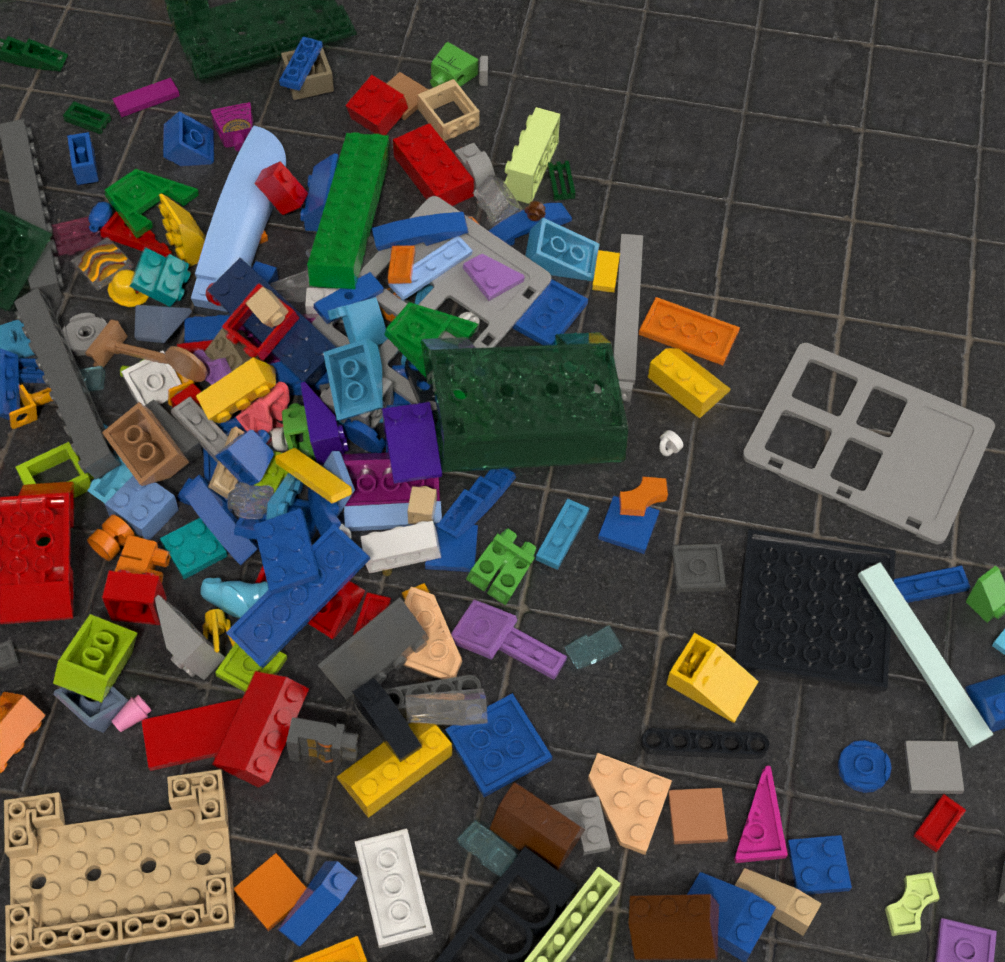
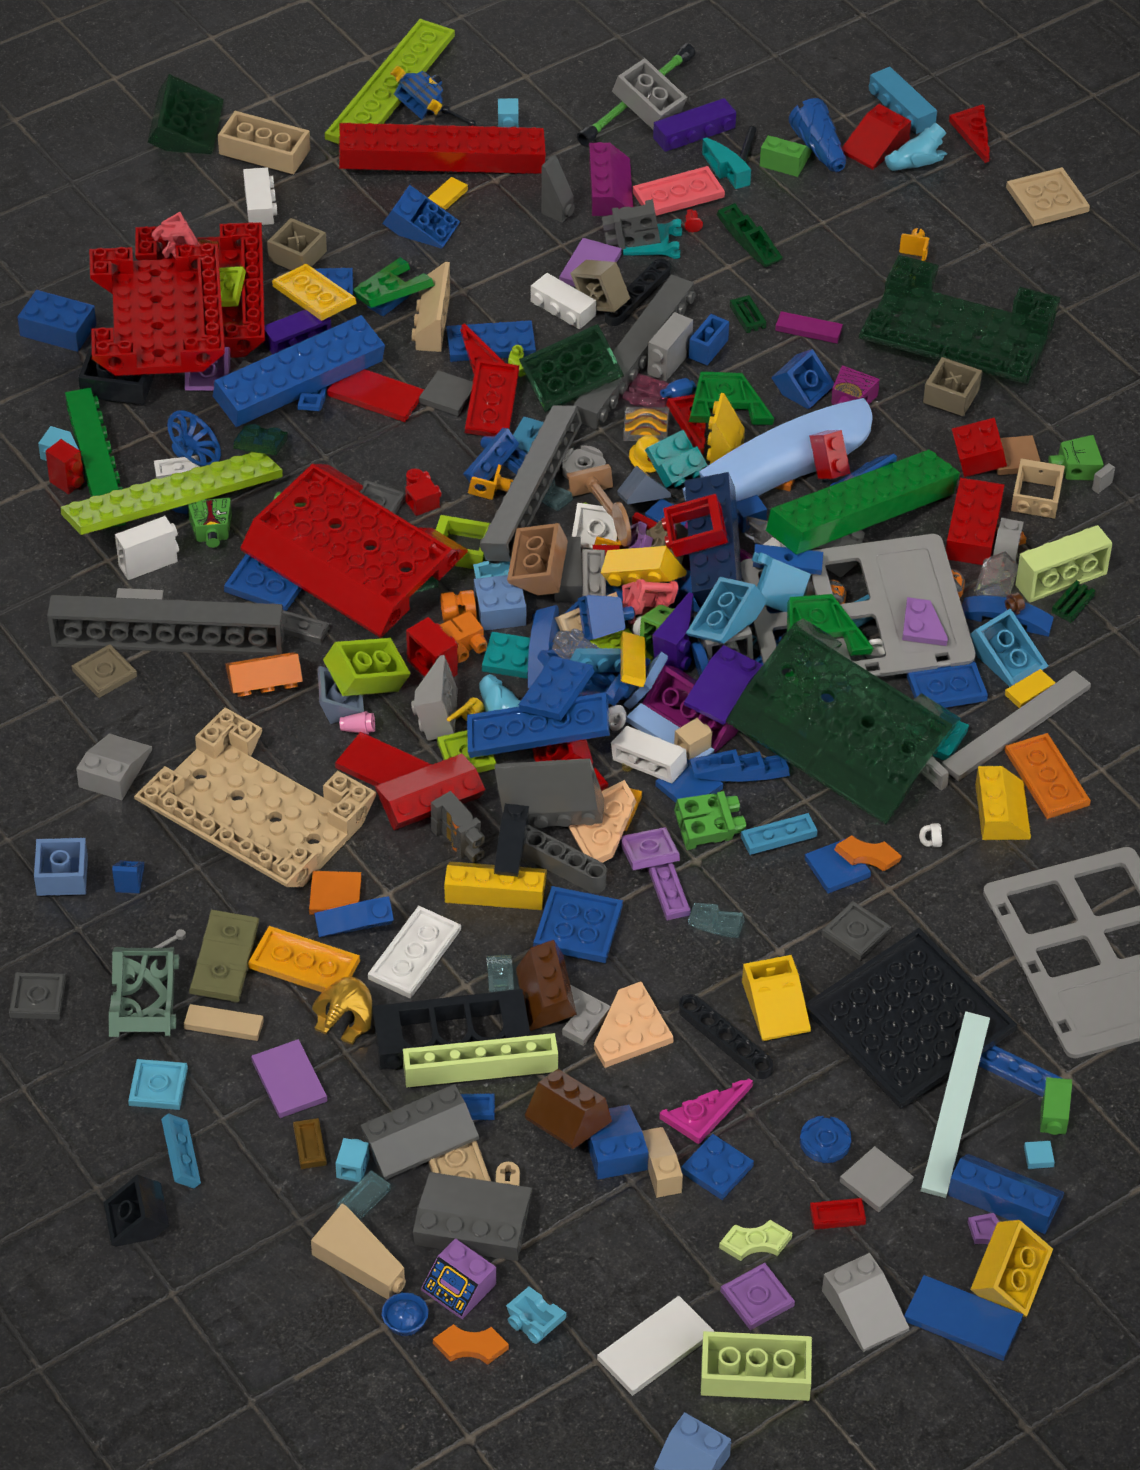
camera: 45 degrees right, 10 degrees down
(59, 185) = (669, 346): none -> light grey brick
(267, 307) = (702, 512): tan brick -> none
(301, 63) = (947, 373): blue tile -> none
(401, 264) = (854, 563): orange tile -> none
(420, 229) = (901, 551): blue slope -> none
(434, 266) = (878, 583): light blue tile -> none
(448, 708) = (565, 869): clear slope -> none
(697, 816) = (667, 1072): nougat tile -> none

